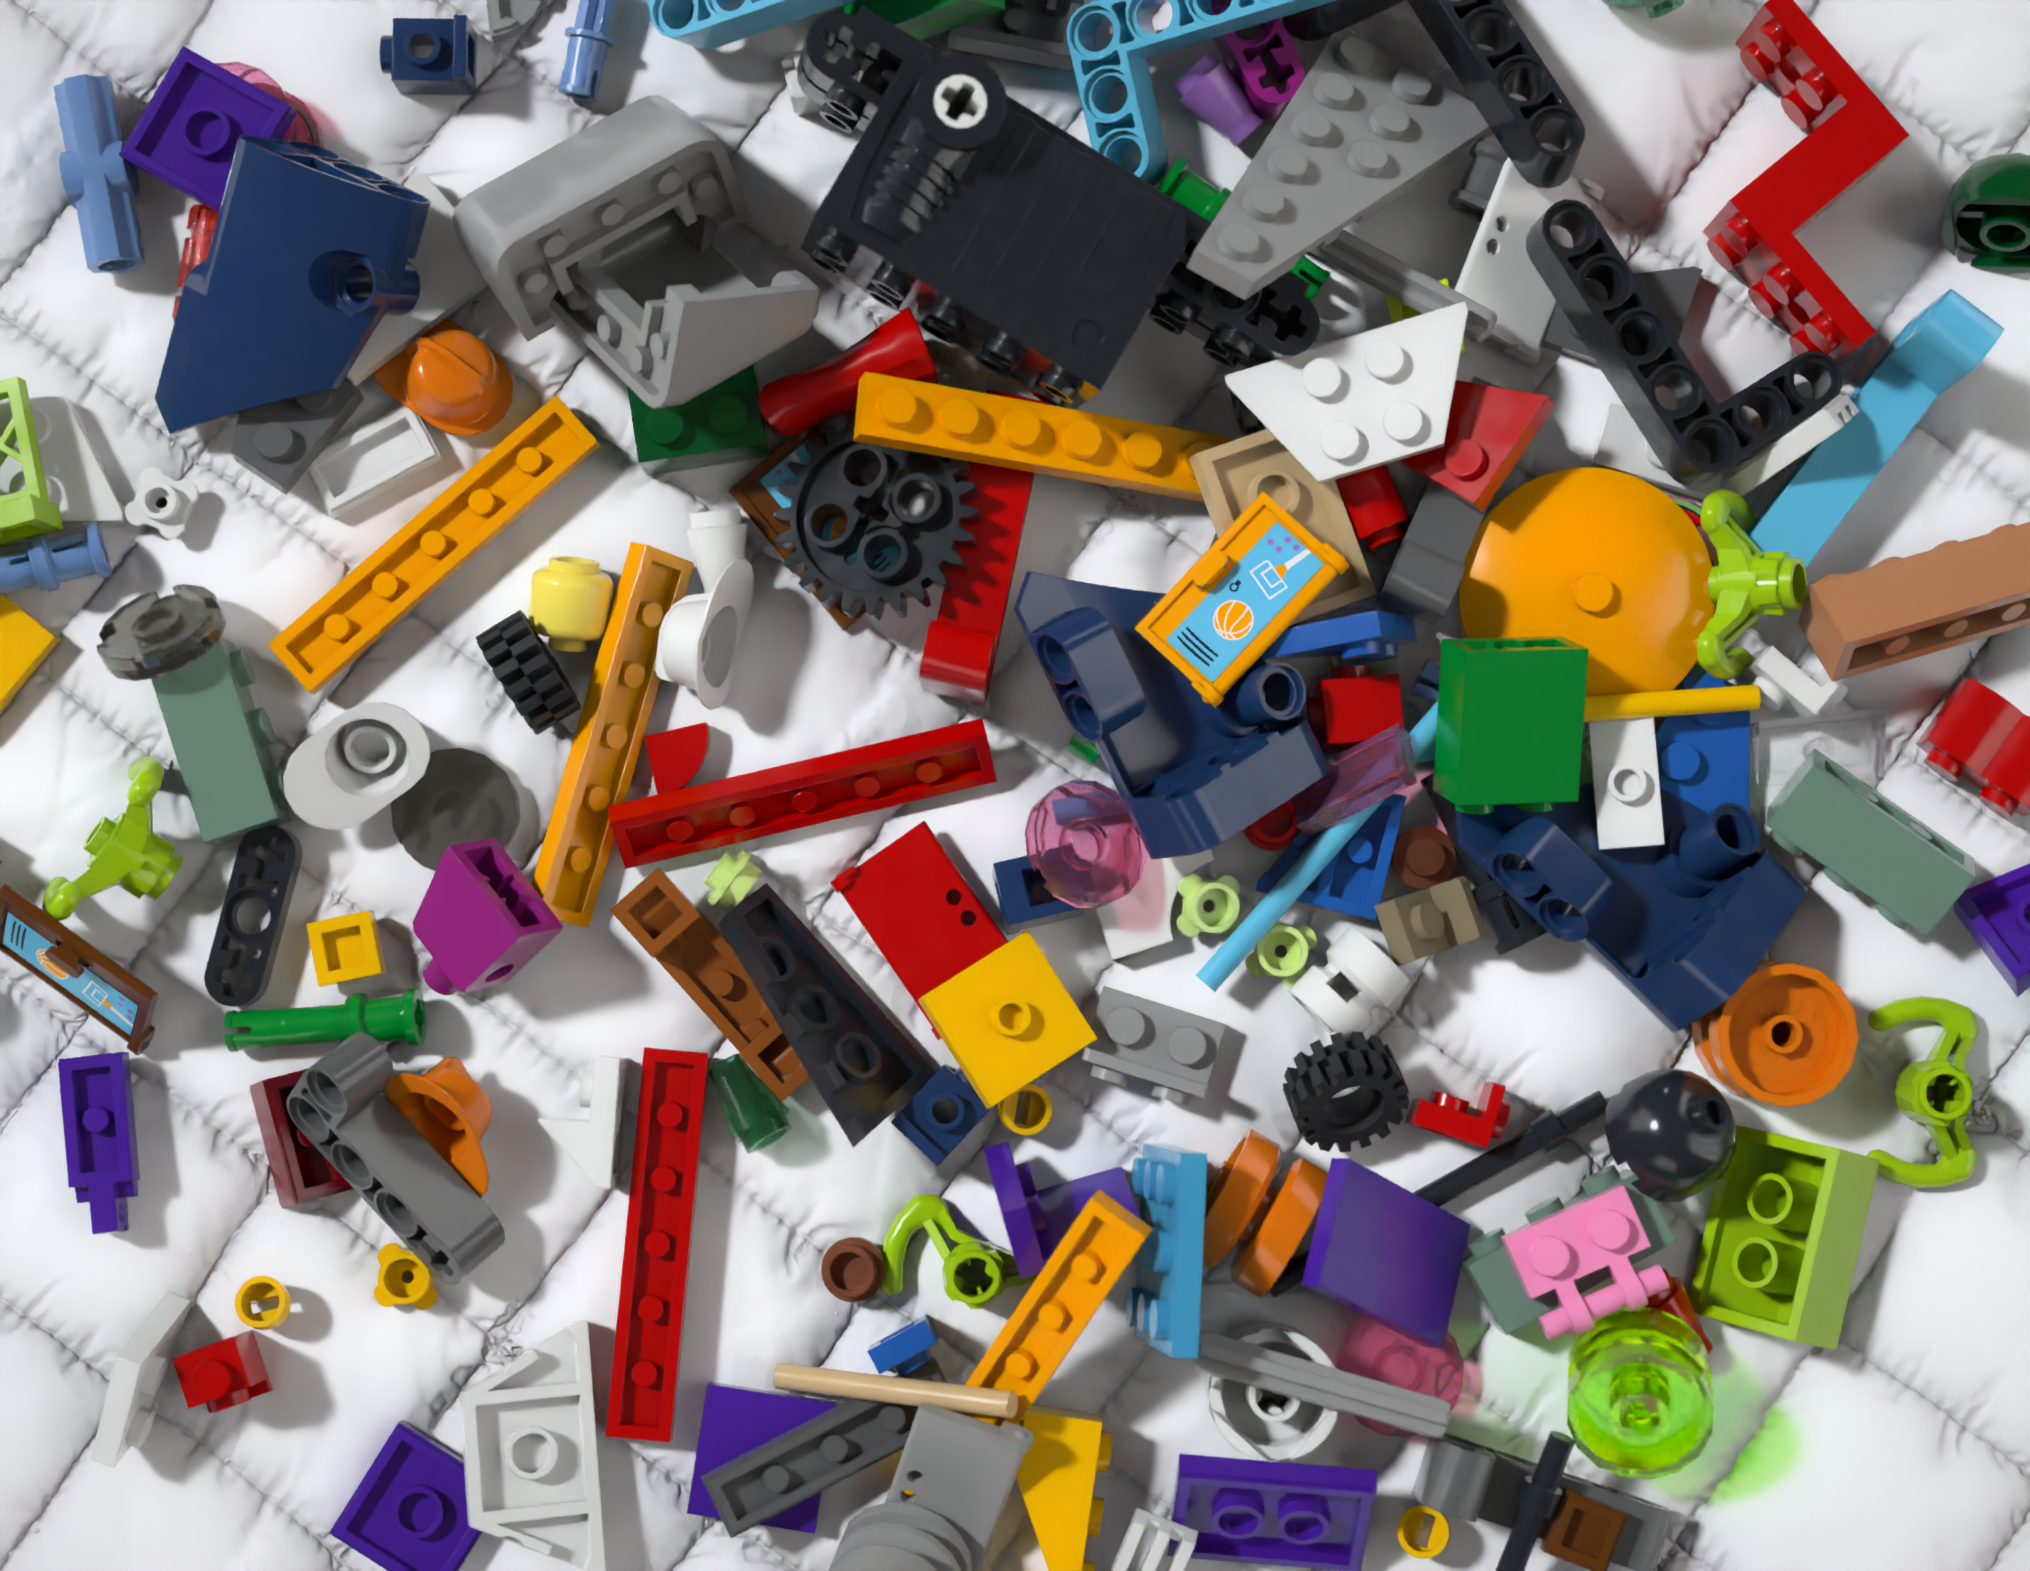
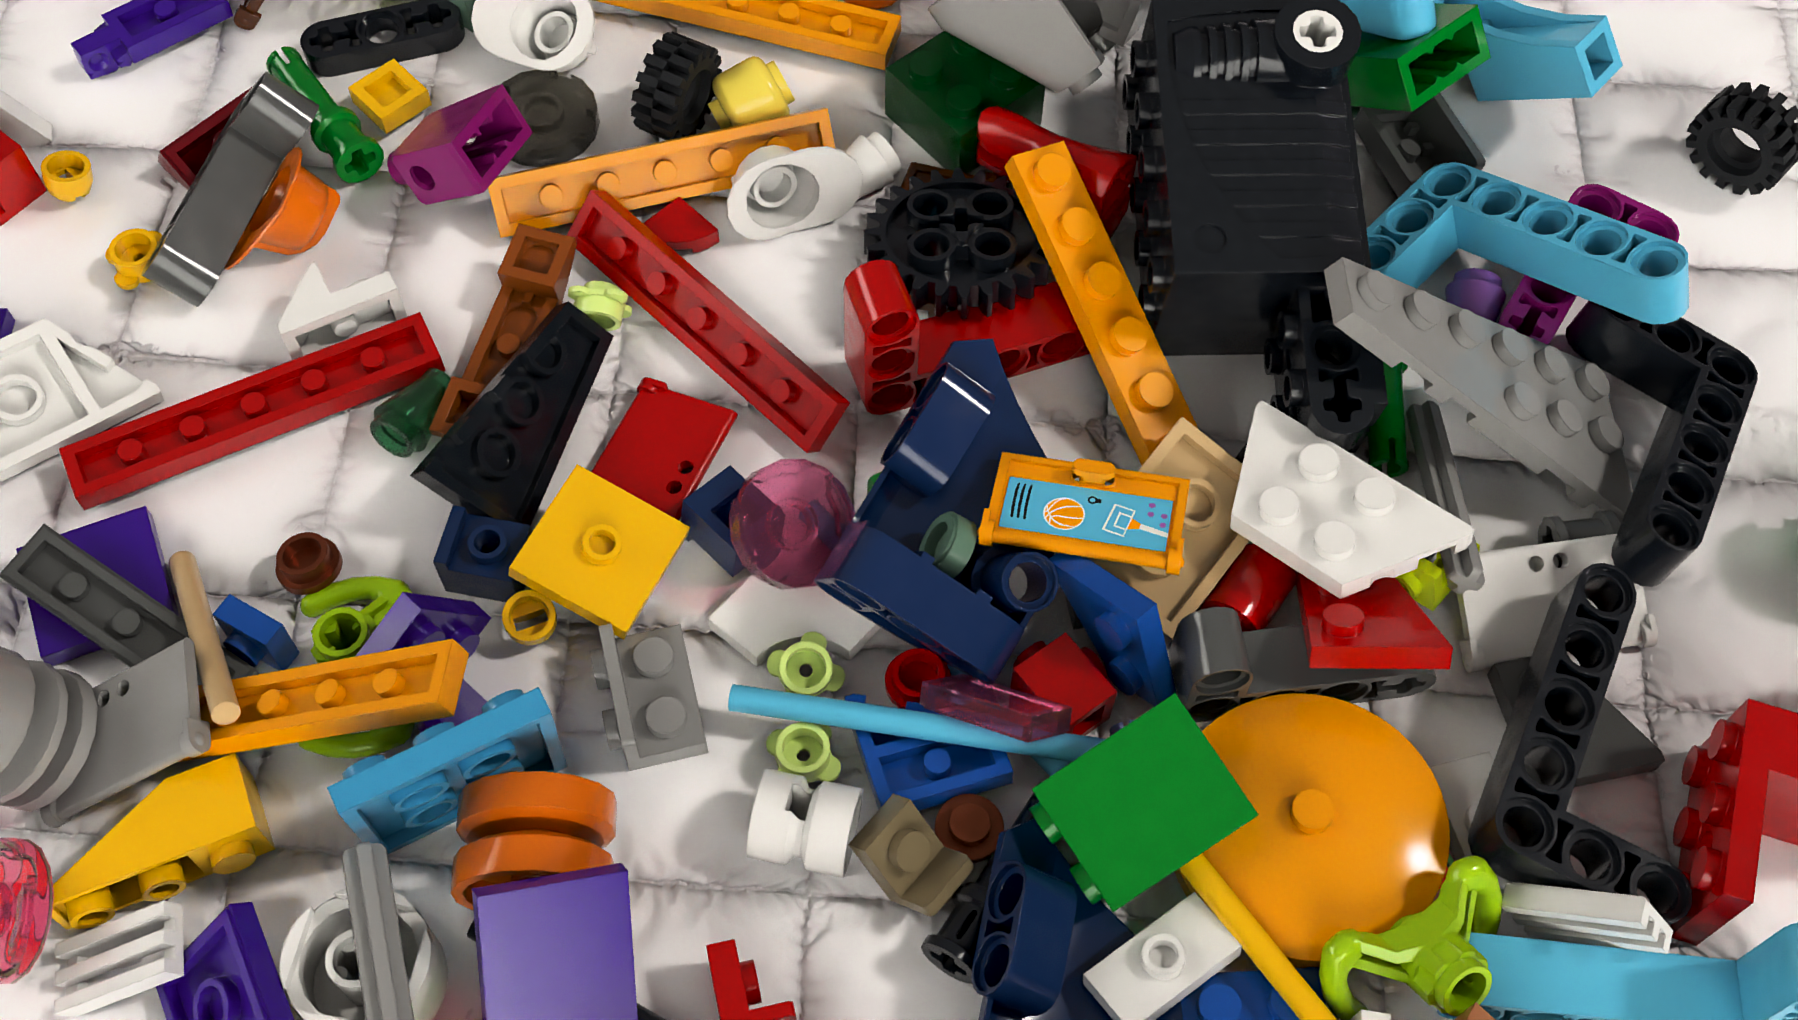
camera: 55 degrees right, 25 degrees down
(1194, 731) = (950, 542): none -> sand green tile
(1338, 1068) = (670, 880): black tyre -> none

